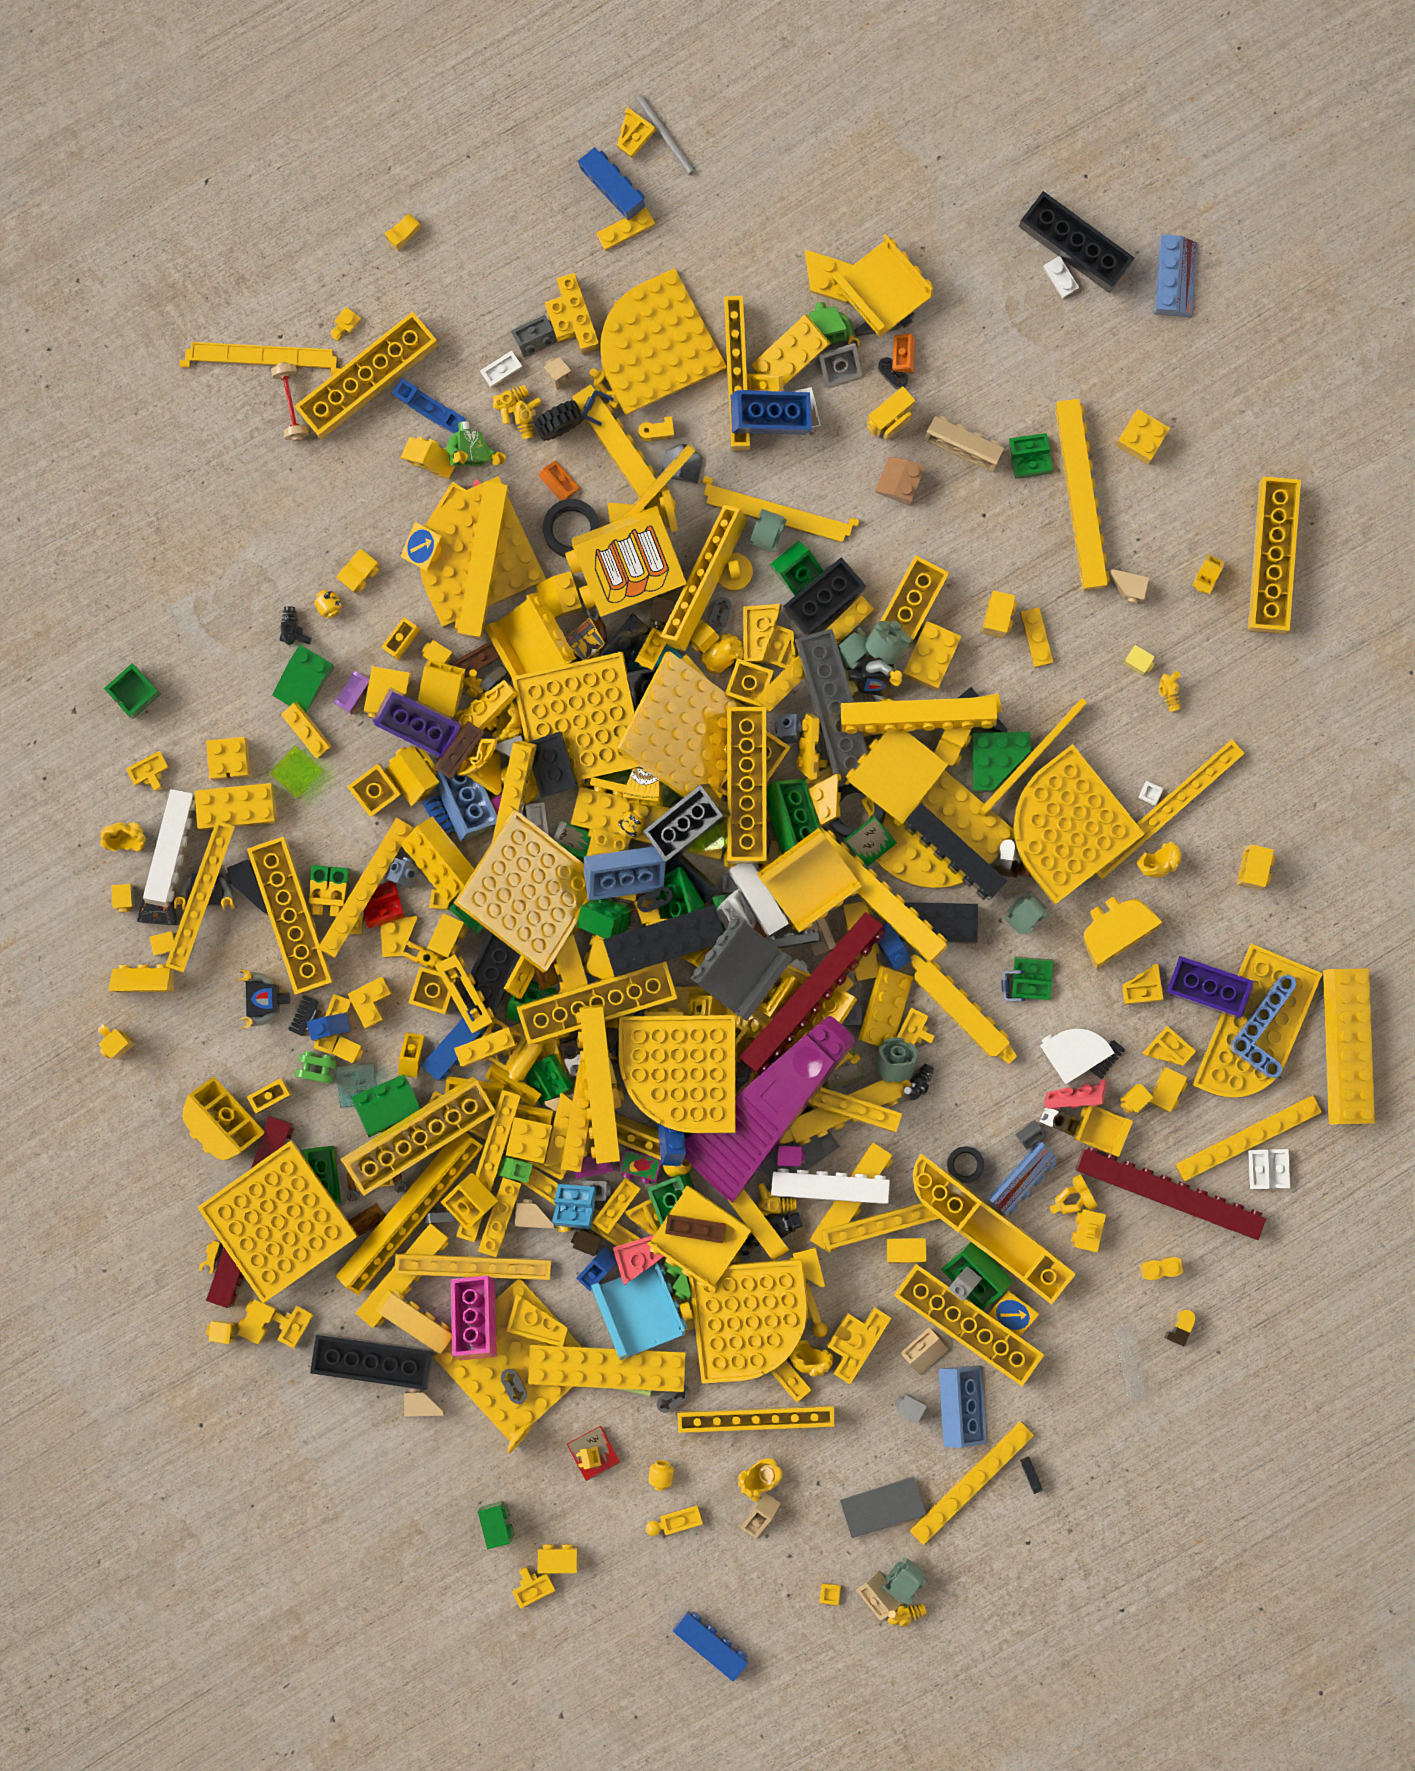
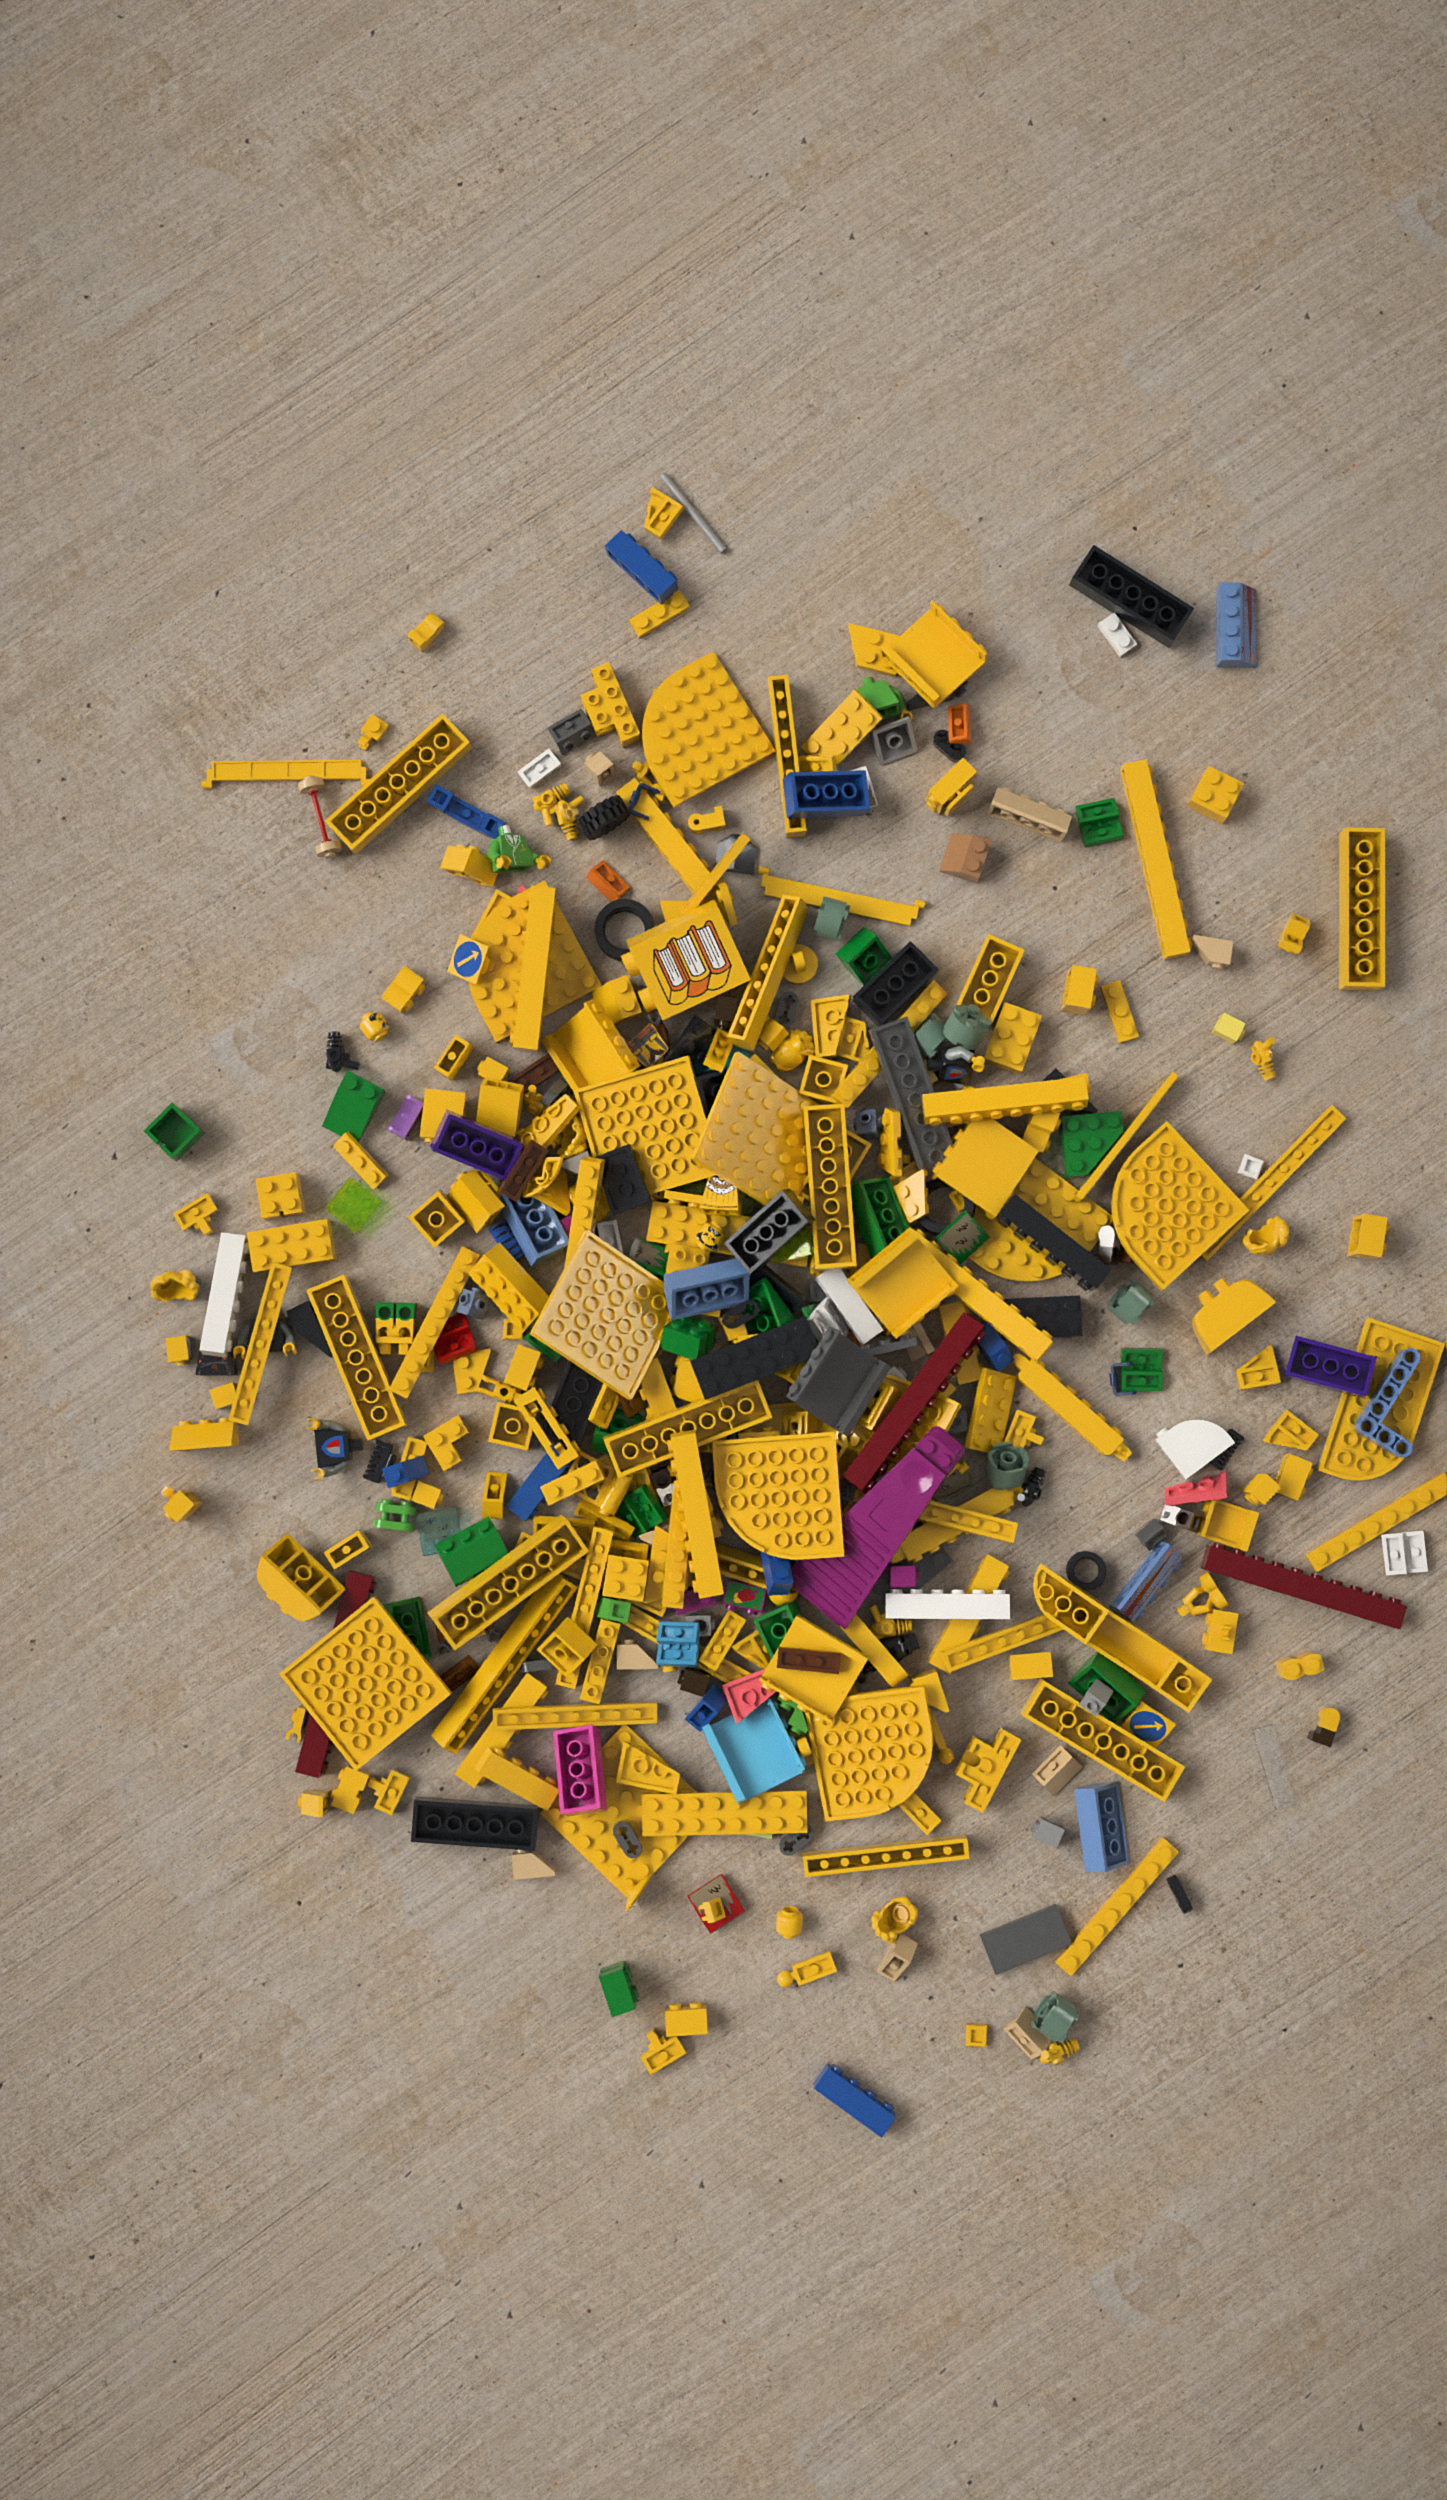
camera: 10 degrees left, 0 degrees up
(811, 1360) = (939, 1788): yellow hair -> none

